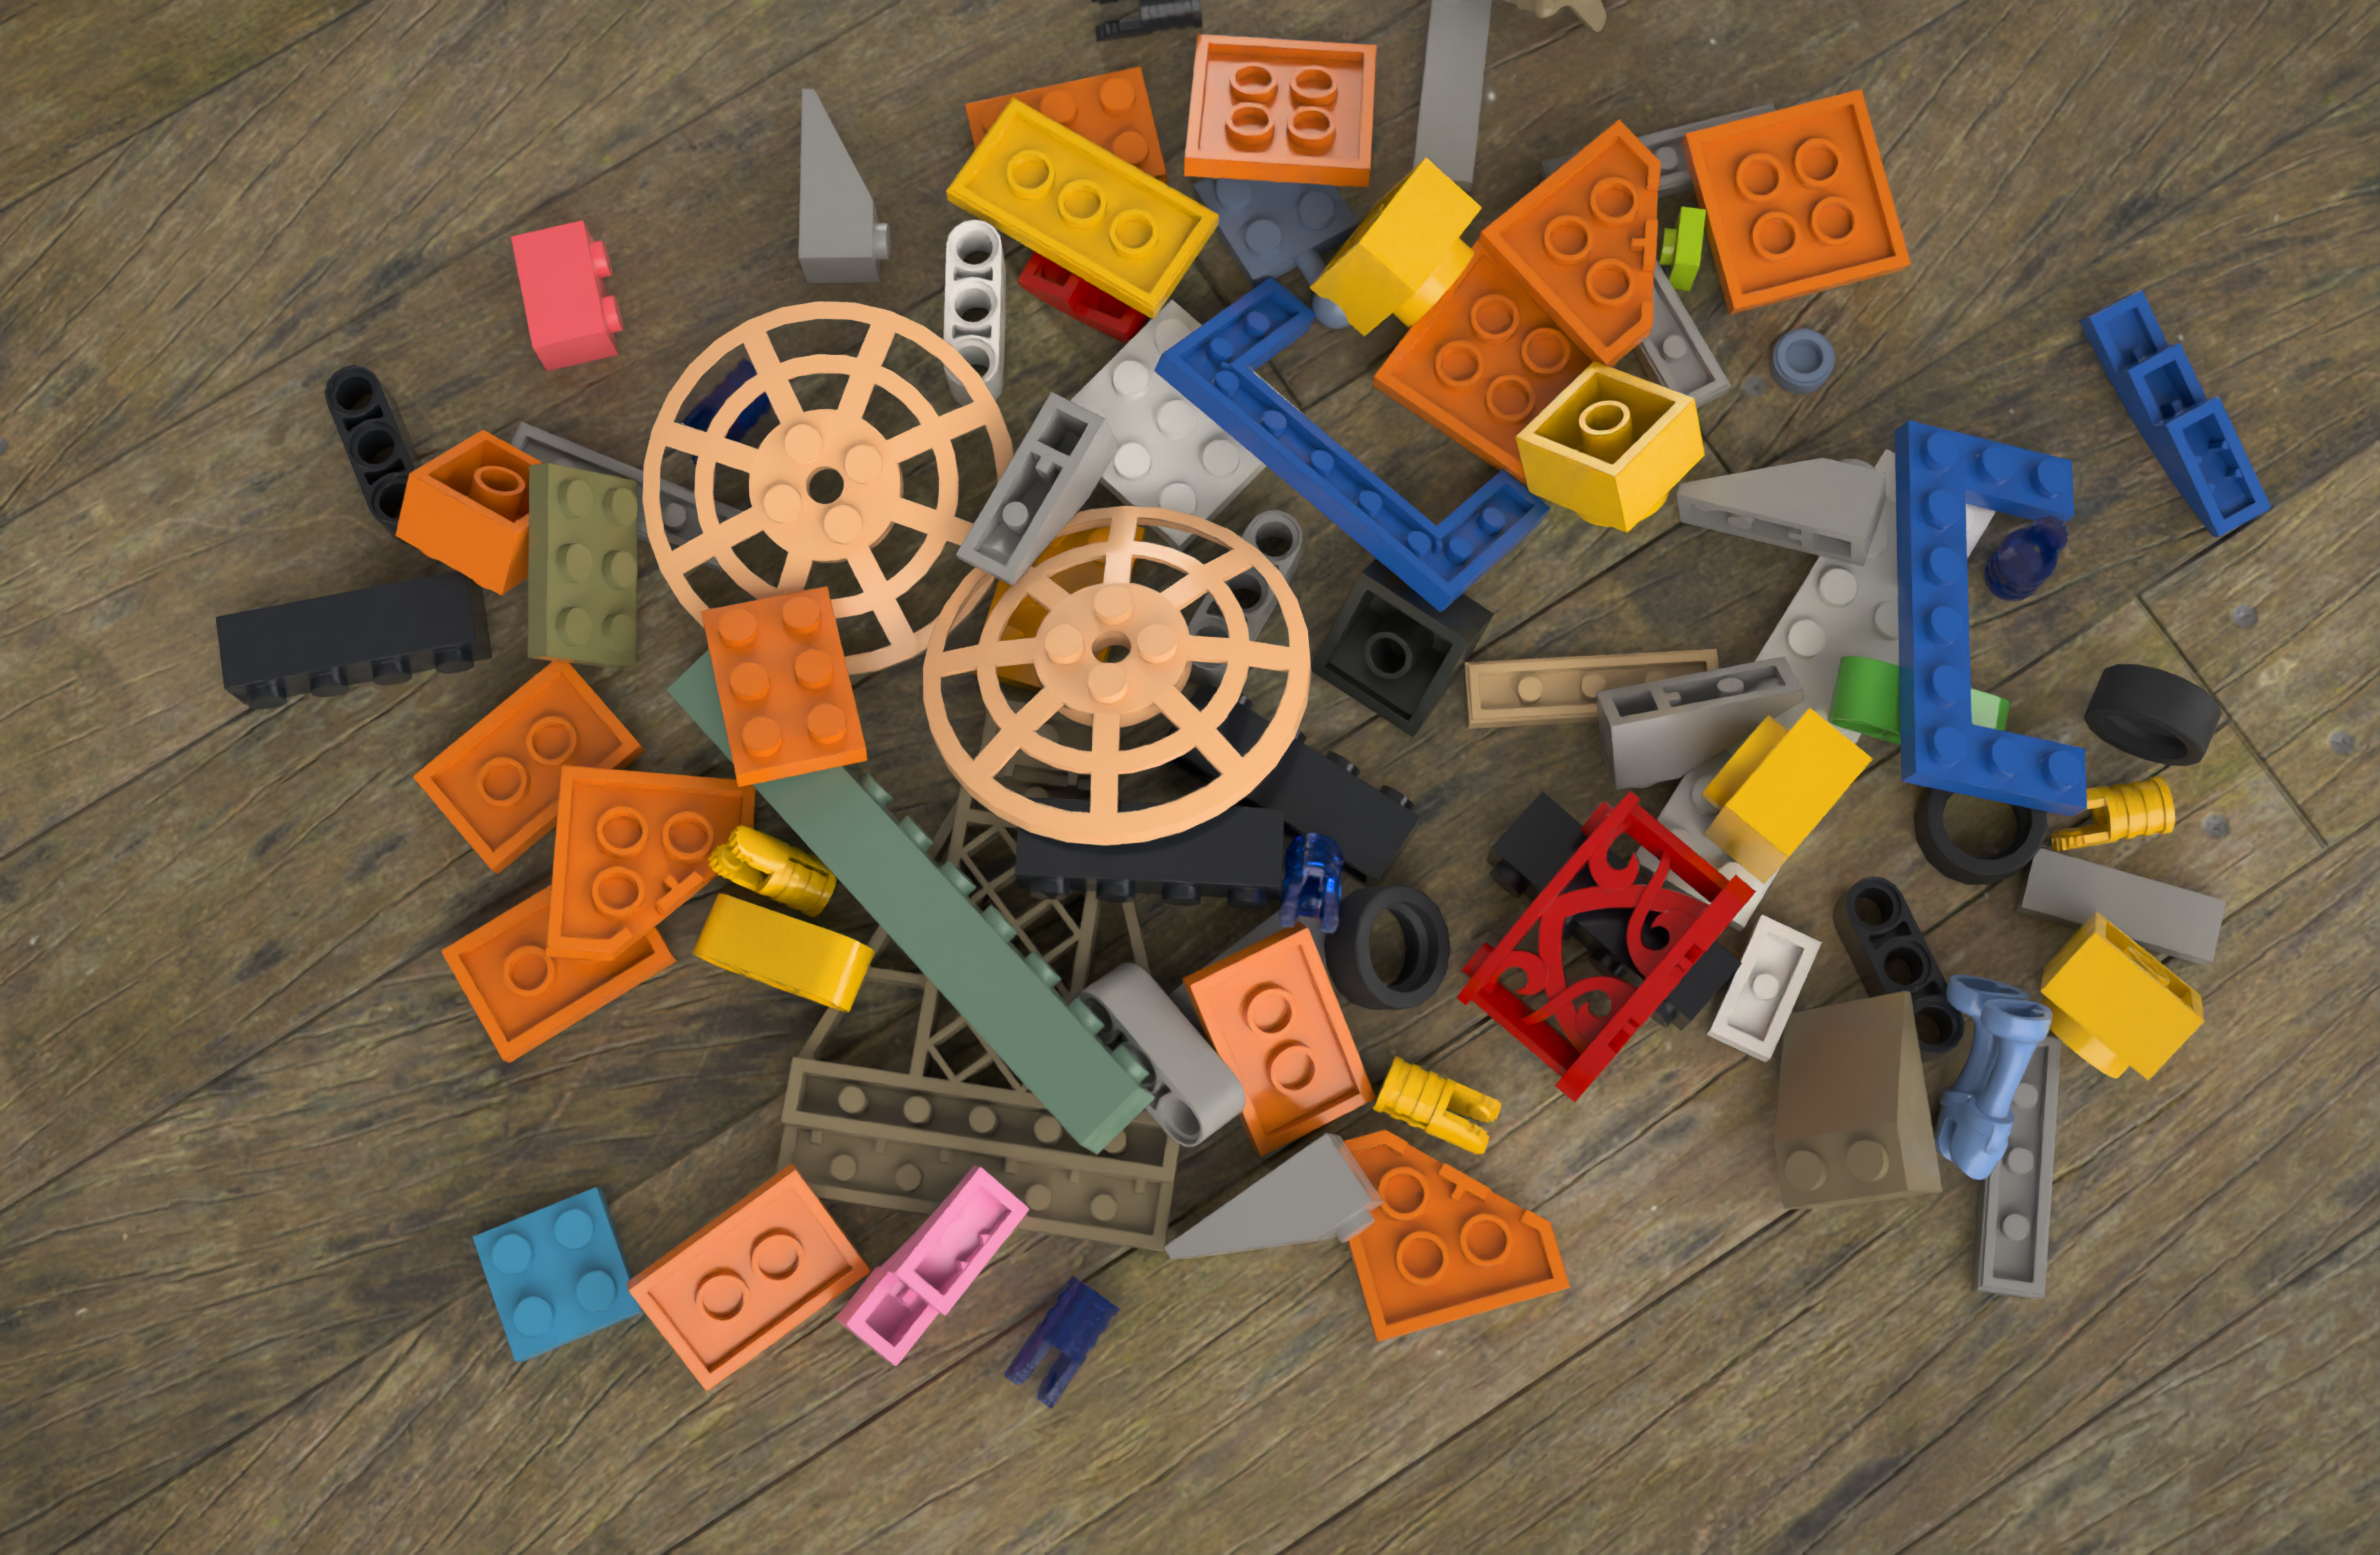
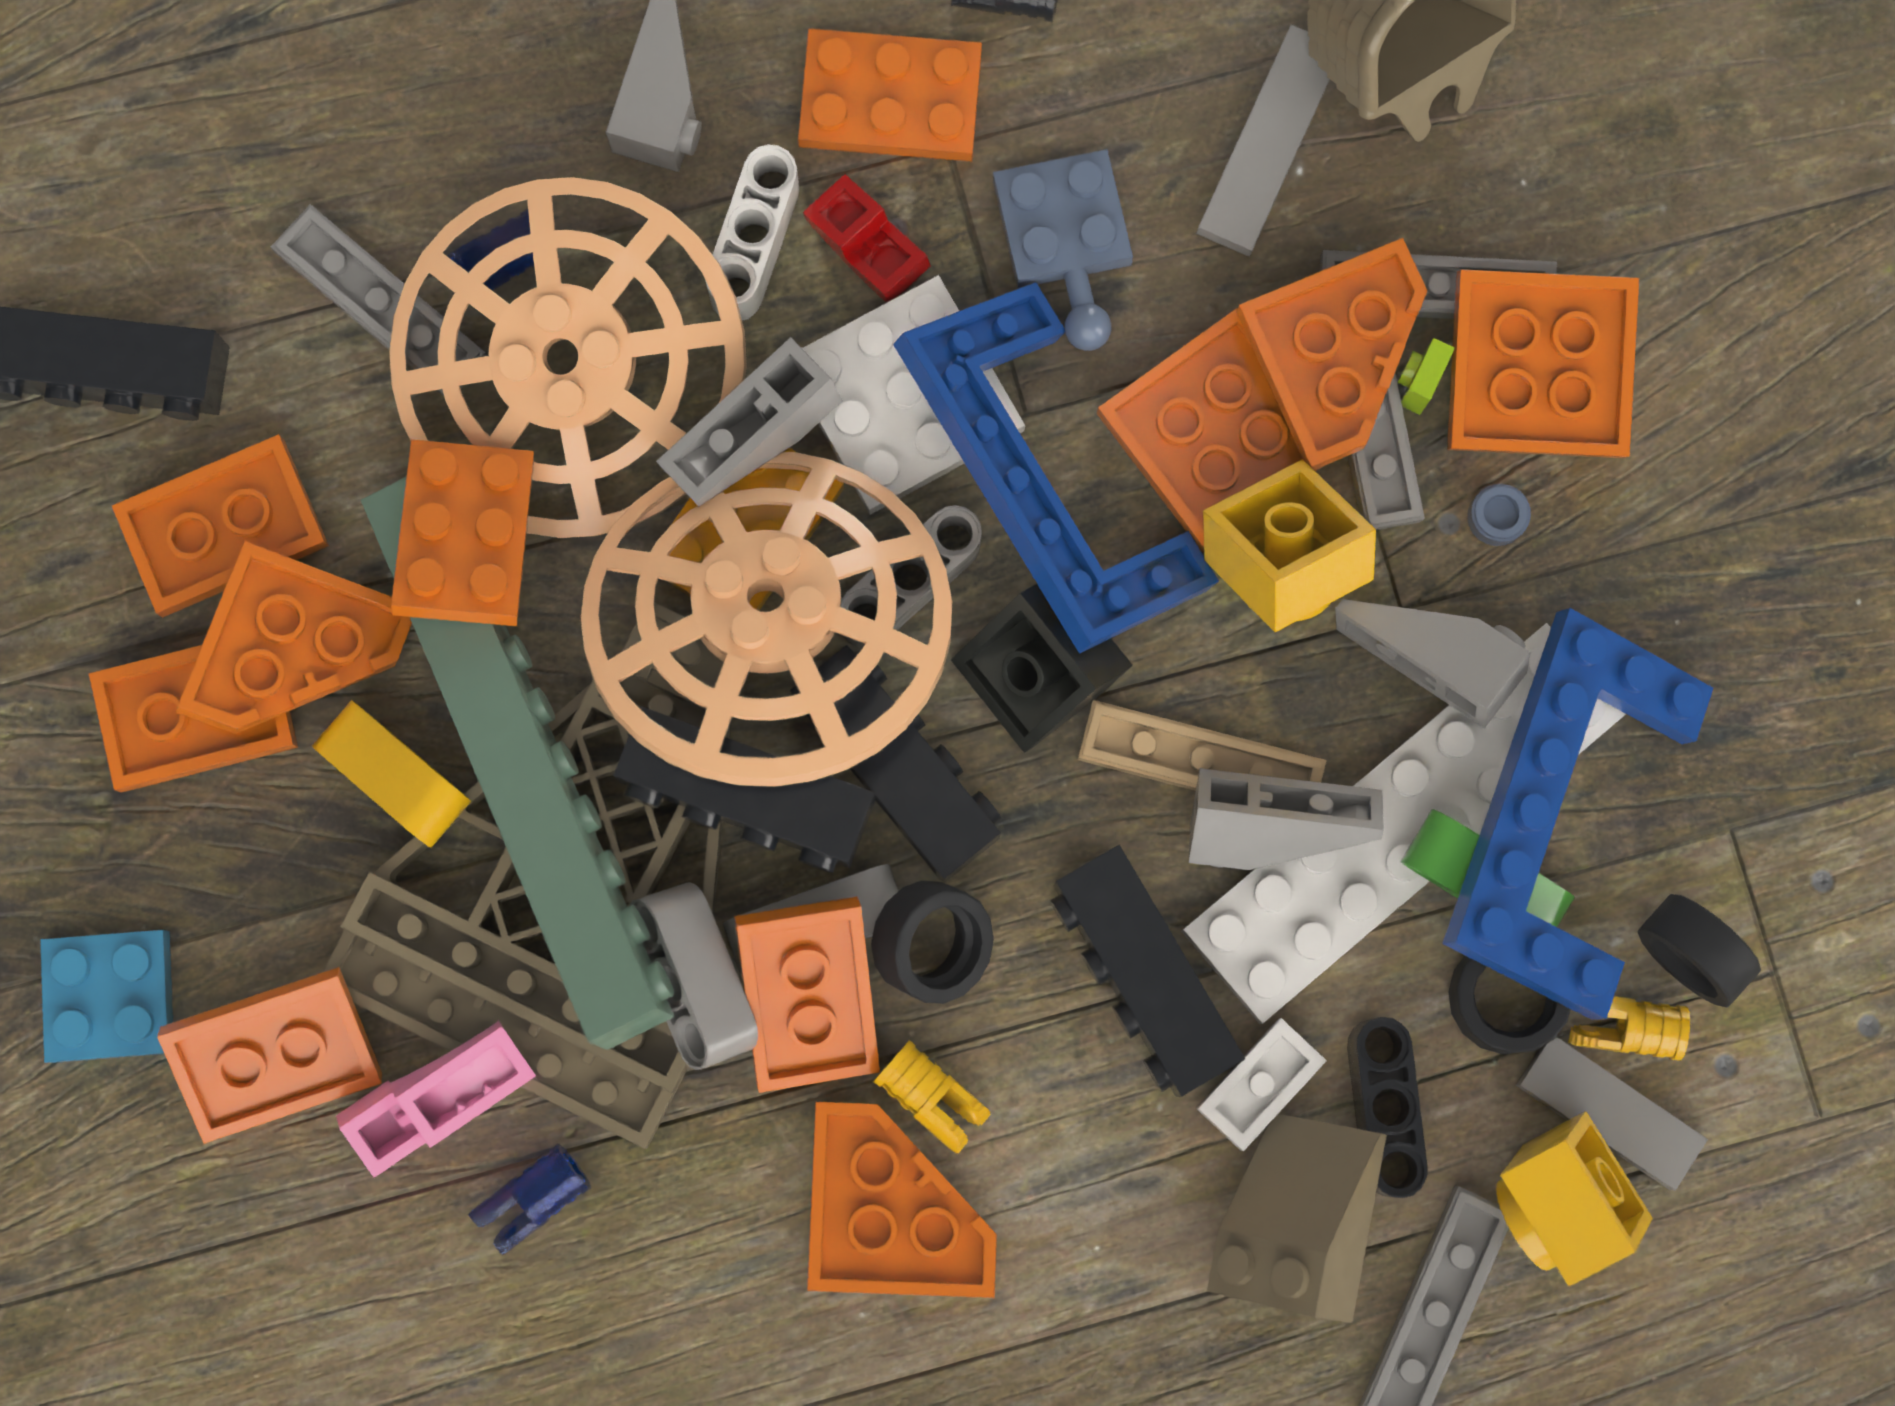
camera: 10 degrees right, 5 degrees up
(368, 432) = (158, 176): black beam -> none
(472, 511) = (252, 284): orange brick -> none
(566, 295) = (386, 97): coral brick -> none
(582, 567) = (318, 363): olive plate -> none
(774, 870) = (405, 695): yellow hinge -> none
(1083, 207) = (882, 164): yellow tile -> none
(1281, 111) = (1095, 129): orange plate -> none
(1299, 1202) = (774, 1148): light grey slope -> none
(1312, 881) = (880, 864): clear blue hinge -> none
(1402, 251) = (1159, 301): yellow piece -> none
(1690, 923) = (1079, 1082): red fence -> none
(1780, 789) = (1331, 915): yellow piece -> none
(1976, 1110) = (1412, 1254): medium blue piece -> none
(2020, 561) = (1631, 770): clear blue hinge -> none
(2175, 418) = (1824, 675): blue slope -> none

